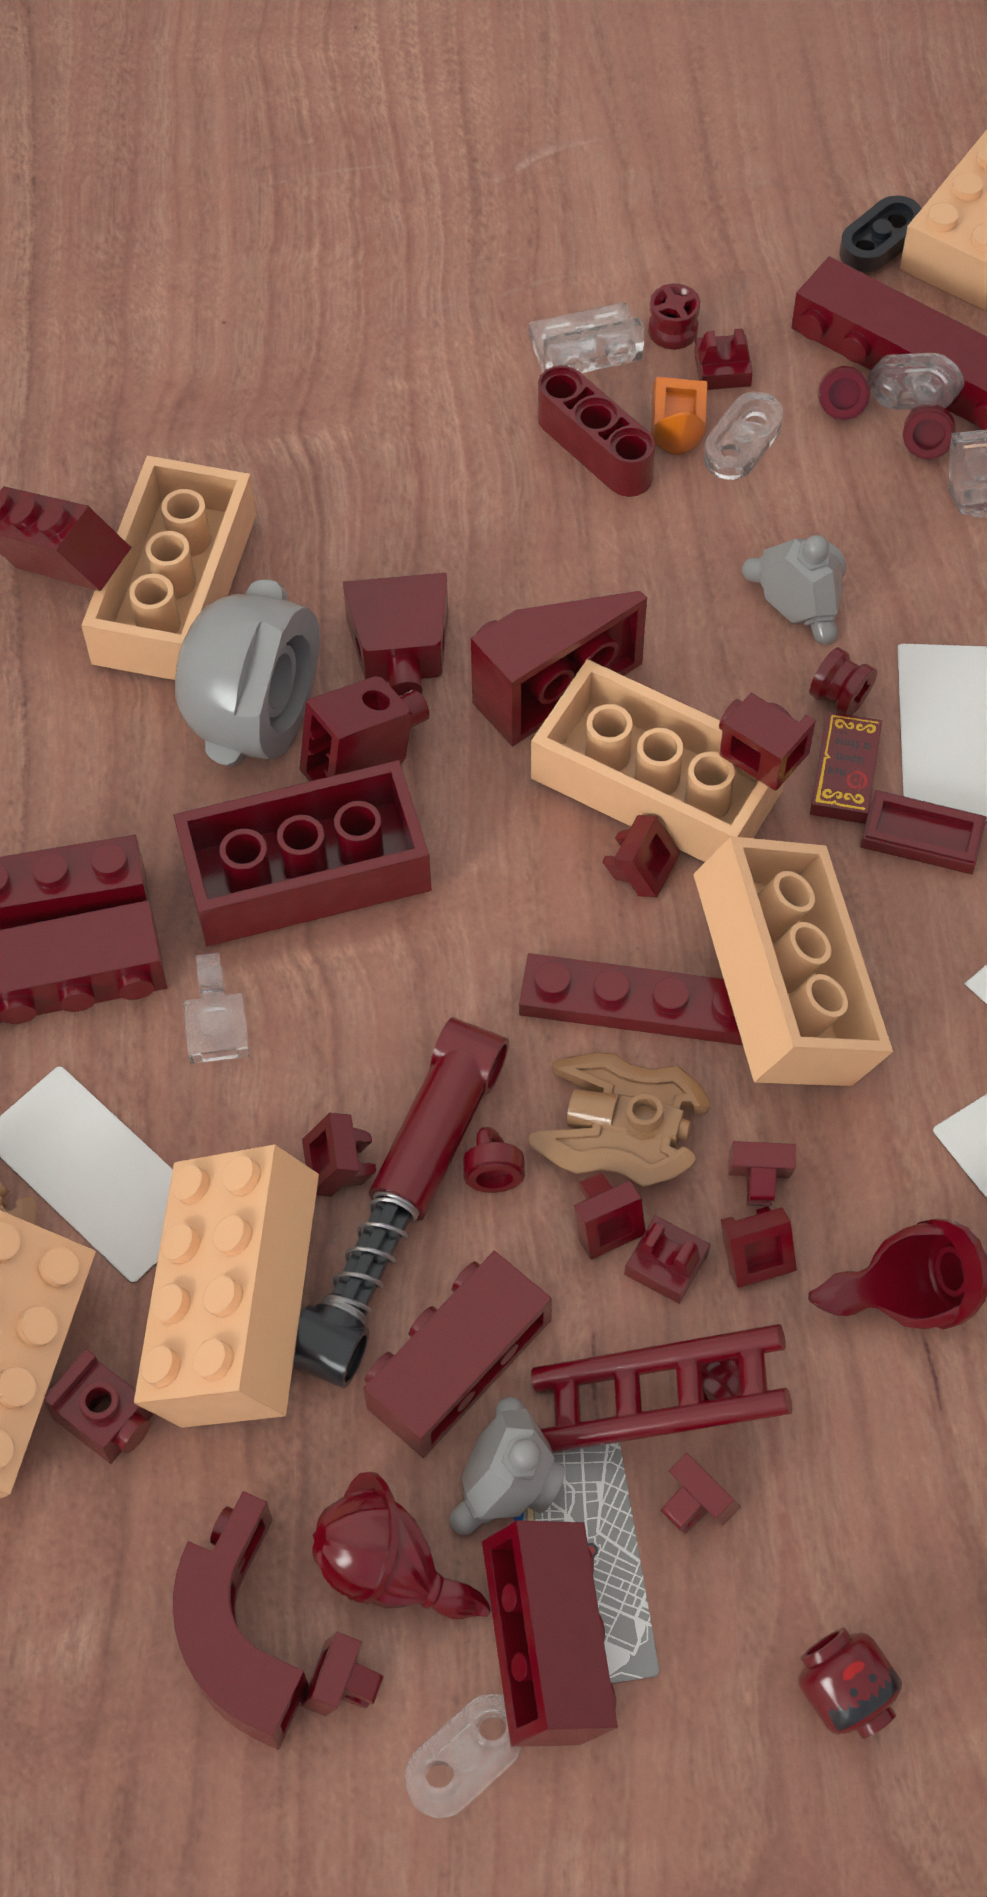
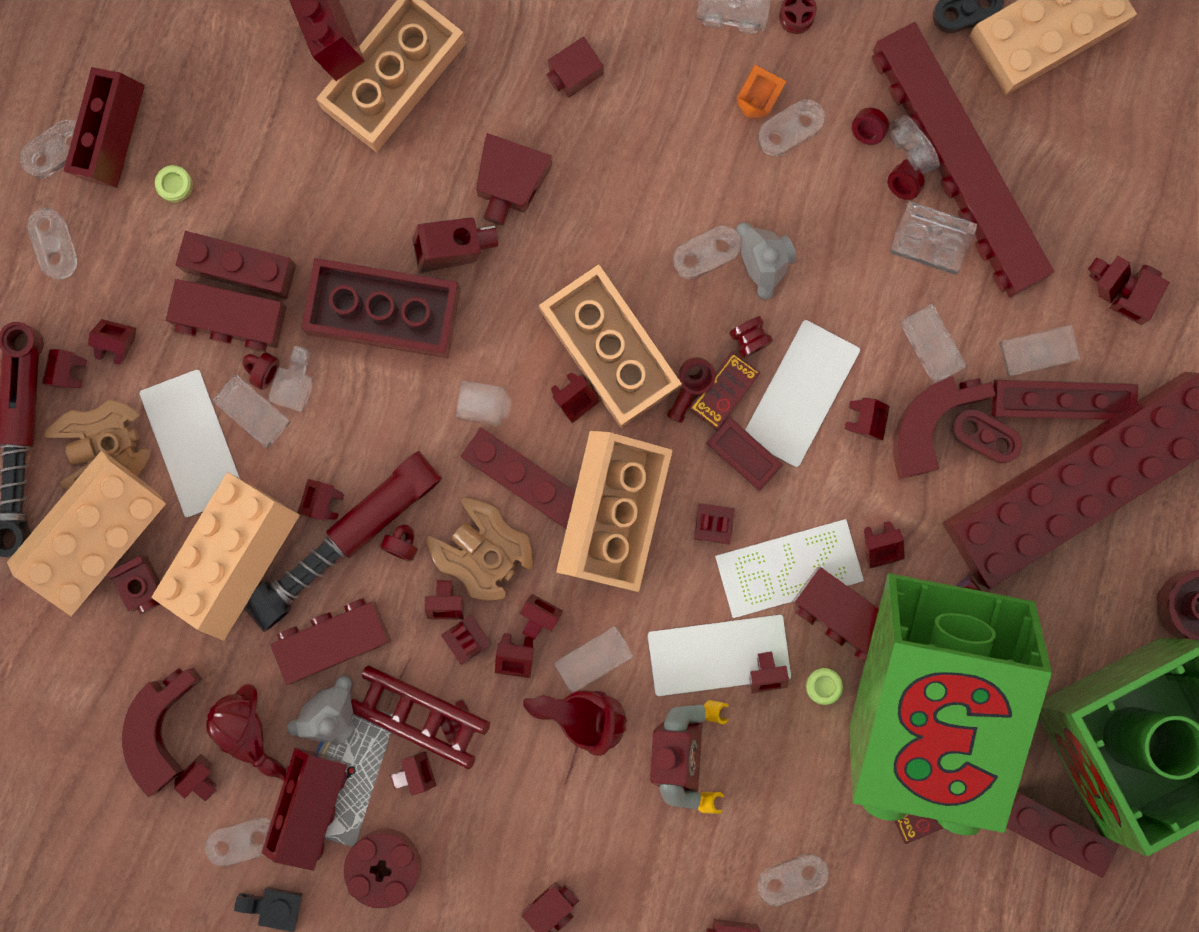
camera: 25 degrees right, 25 degrees up
(164, 1014) = (263, 371): none -> dark red tile
(169, 1083) = (251, 411): none -> clear plate
(248, 673) = (400, 176): light grey piece -> none
(420, 477) = (574, 67): none -> dark red brick
(514, 919) = (482, 403): none -> clear brick
(537, 651) = (576, 248): dark red slope -> none
(583, 1842) = (277, 908): none -> black plate
(595, 430) = (700, 65): dark red beam -> none
(716, 616) = (705, 251): none -> clear plate
(723, 360) = (812, 61): dark red tile -> none
(750, 1637) = (364, 880): none -> dark red brick
(764, 739) = (665, 374): dark red brick -> none
(799, 785) = (691, 386): none -> dark red bar
(850, 1683) = (438, 900): dark red head -> none
(876, 1198) = (593, 659): none -> clear plate
(937, 938) = (714, 523): none -> dark red tile

